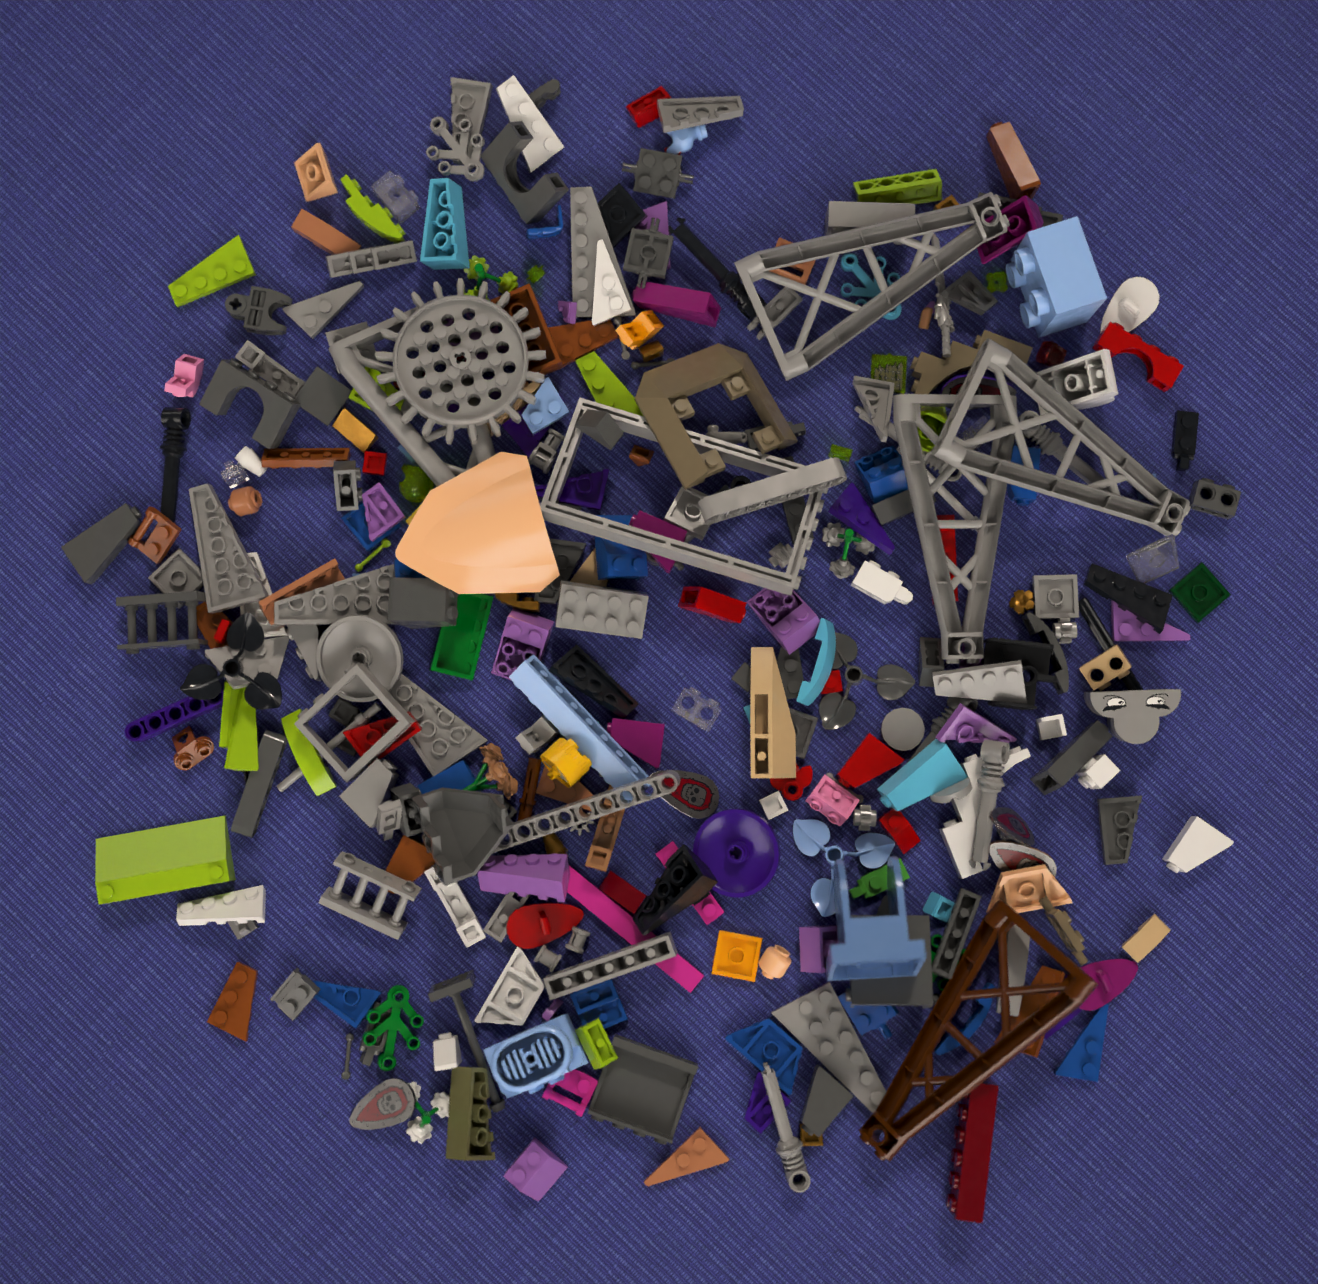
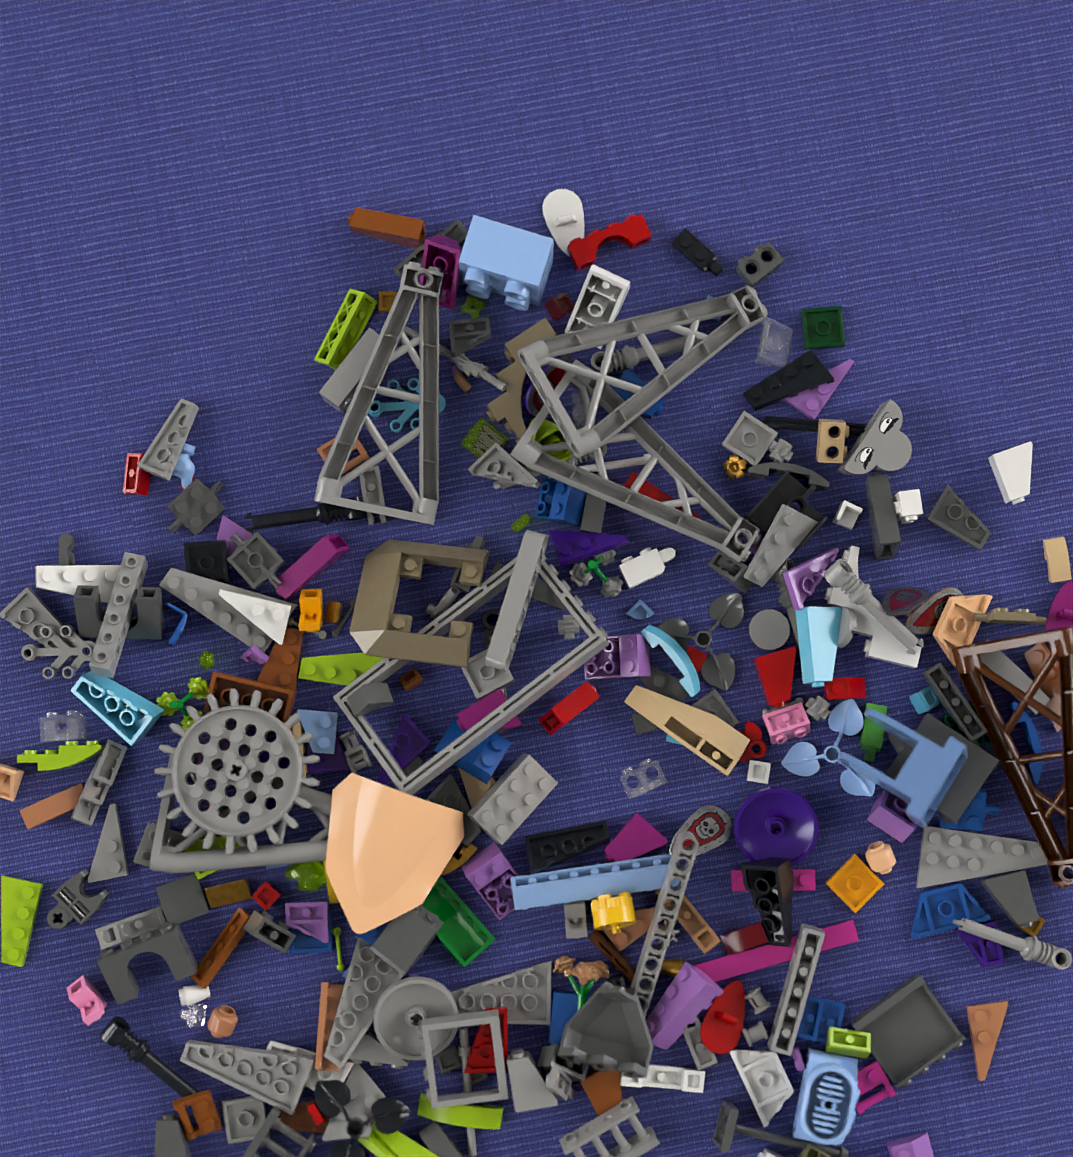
camera: 55 degrees left, 0 degrees up
(520, 172) = (118, 615): none -> light grey brick
(838, 607) = (640, 611): none -> medium blue tile

